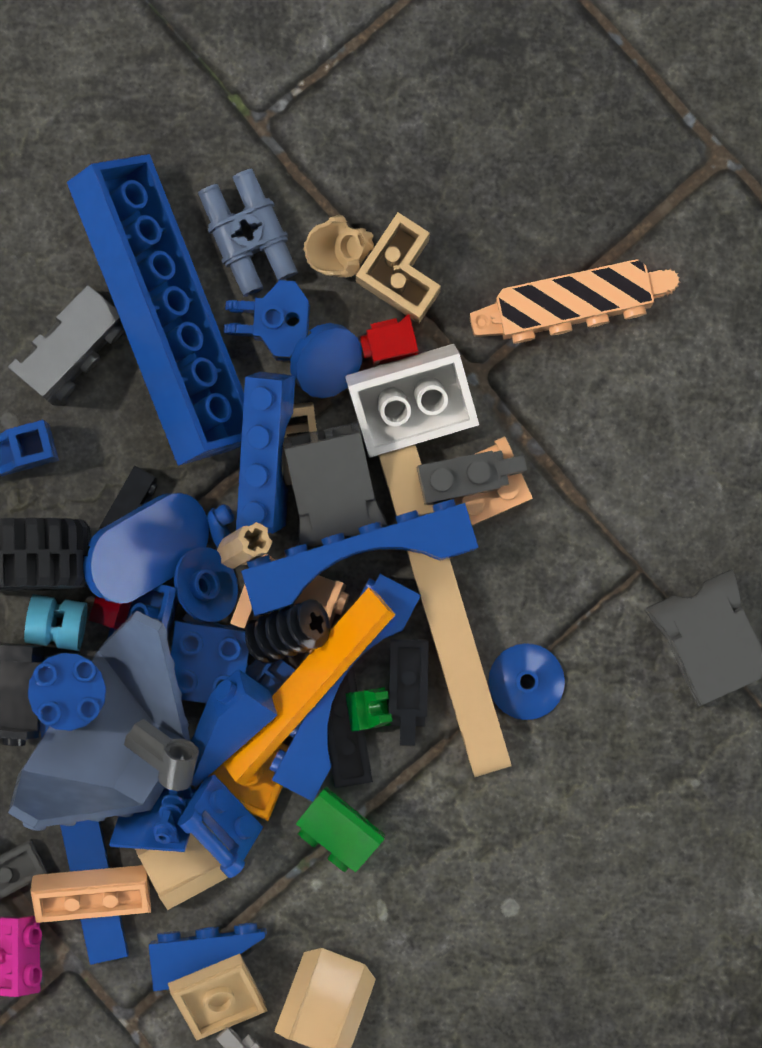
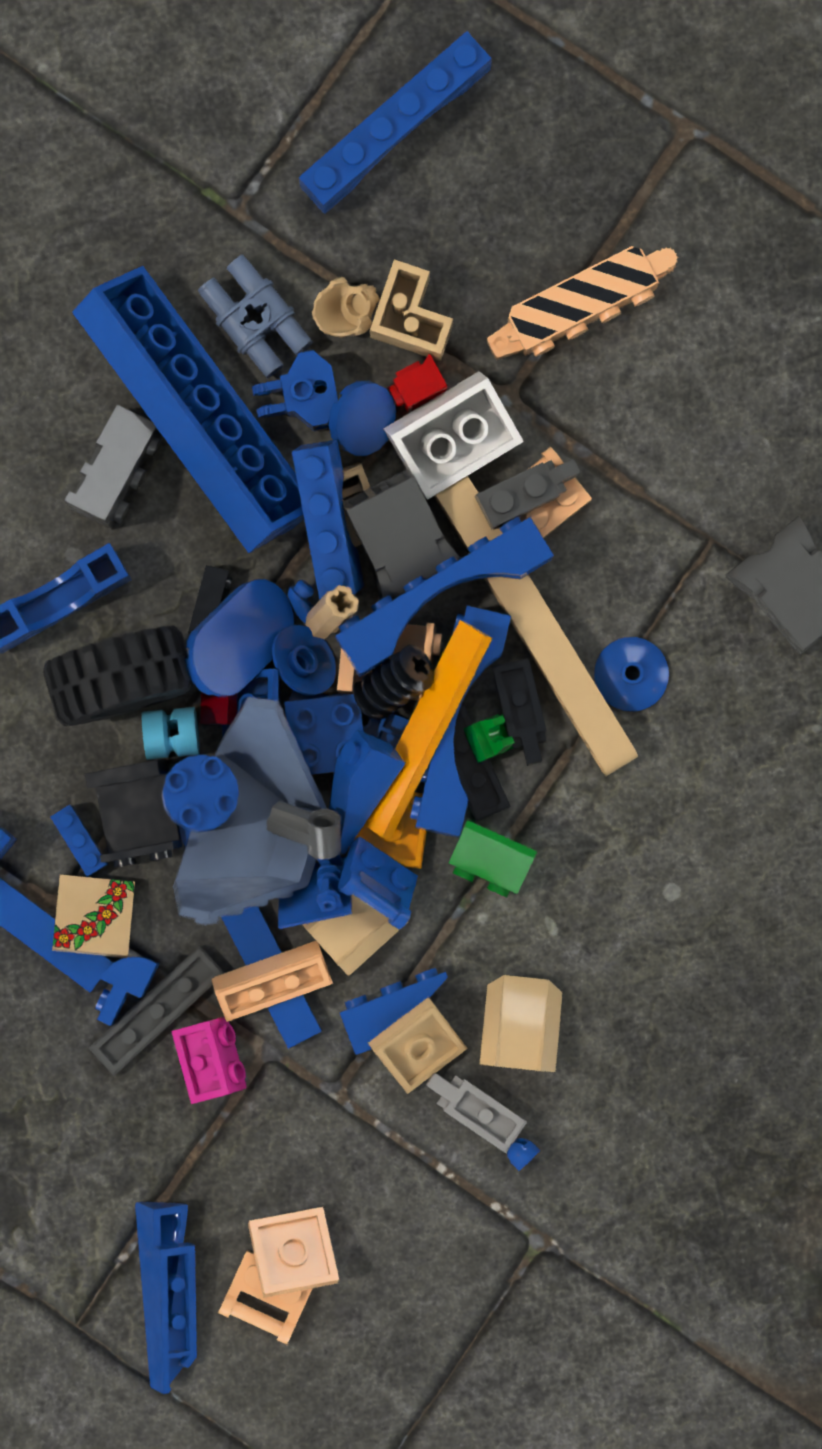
camera: 15 degrees left, 0 degrees up
(468, 58) = (380, 132): none -> blue arch

